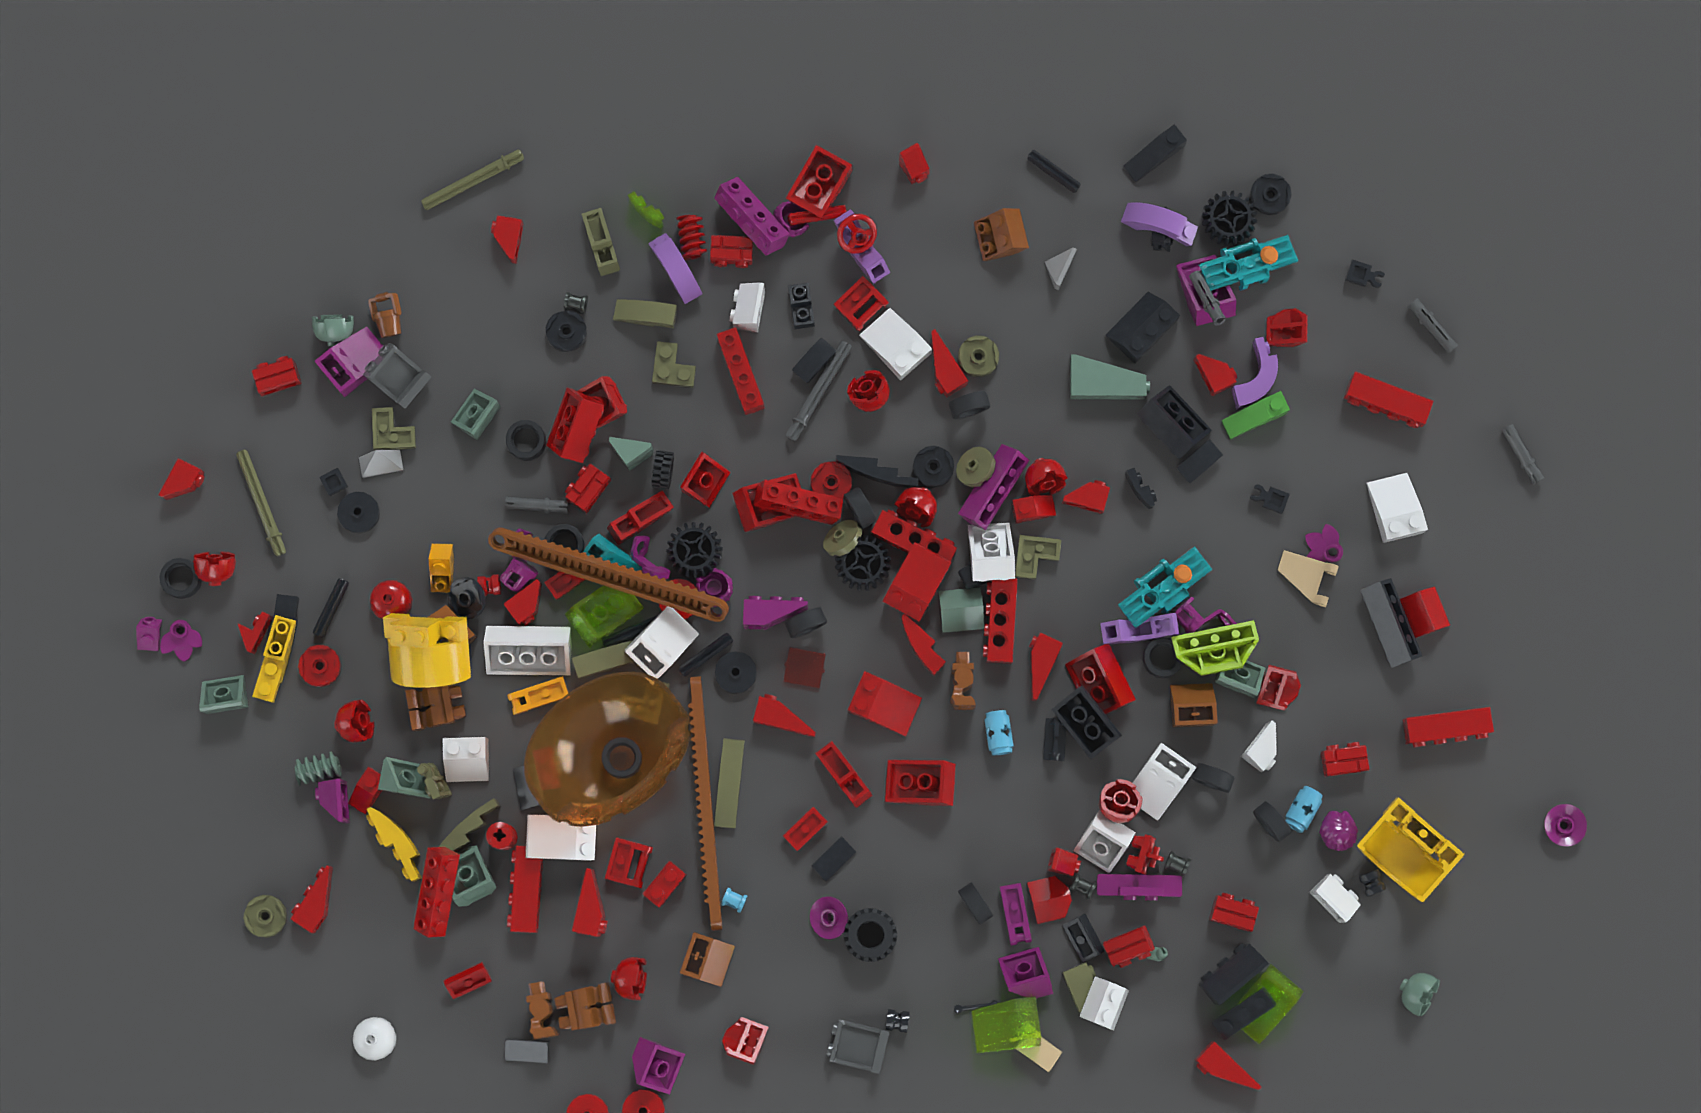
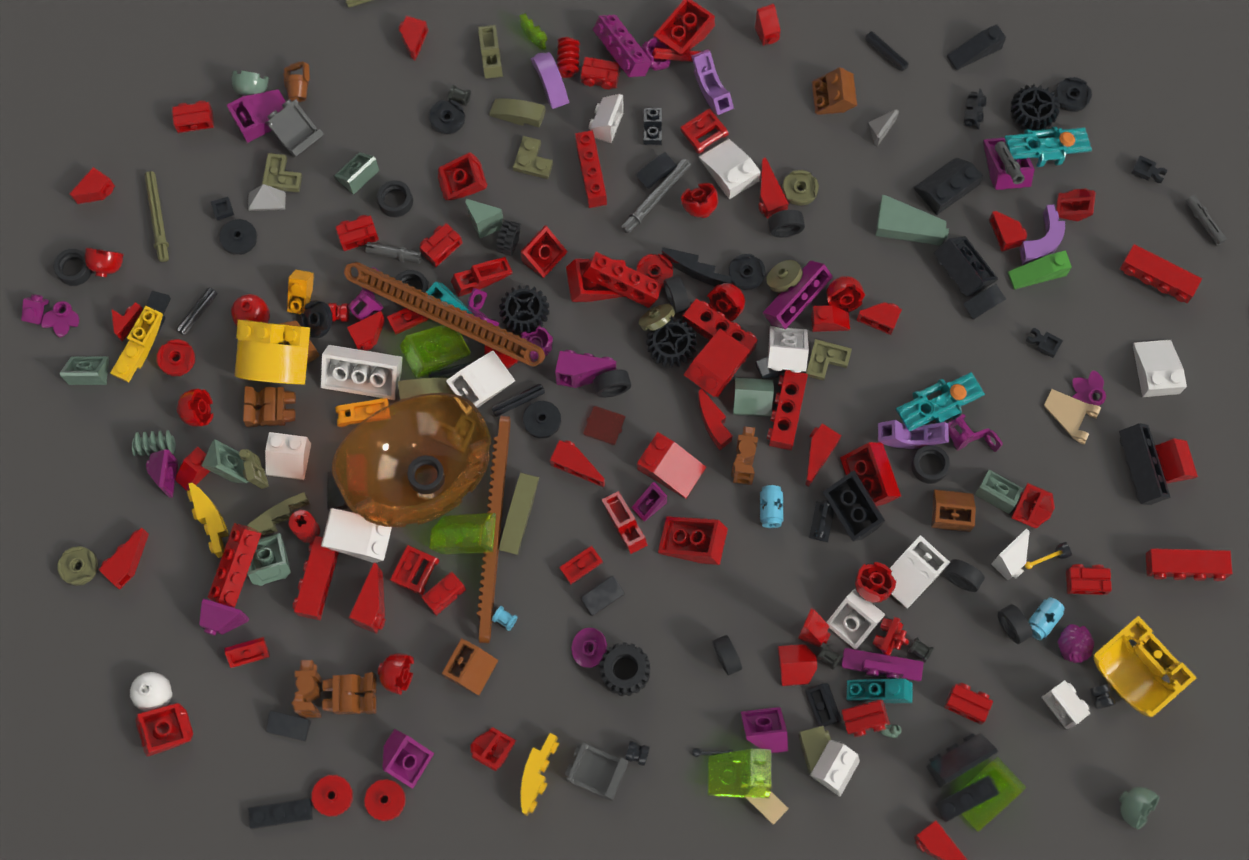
camera: 10 degrees right, 10 degrees down
(397, 1076) = (163, 728): none -> red slope
(431, 950) = (220, 618): none -> magenta slope
(491, 488) = (356, 232): none -> red brick
(575, 425) = (439, 190): red slope -> none
(674, 816) = (464, 534): none -> clear neon green slope
(793, 1067) = (532, 781): none -> yellow slope
(862, 240) = (716, 70): red piece -> none
(867, 749) = (650, 502): none -> magenta slope
(1015, 913) = (763, 671): magenta plate -> none
(1140, 914) = (880, 689): none -> teal slope
(1144, 493) = (929, 319): black slope -> none
(1159, 219) = (974, 96): medium lavender arch -> none
(1217, 648) = (982, 459): lime wedge -> none
(1313, 732) = (1062, 551): none -> hinge

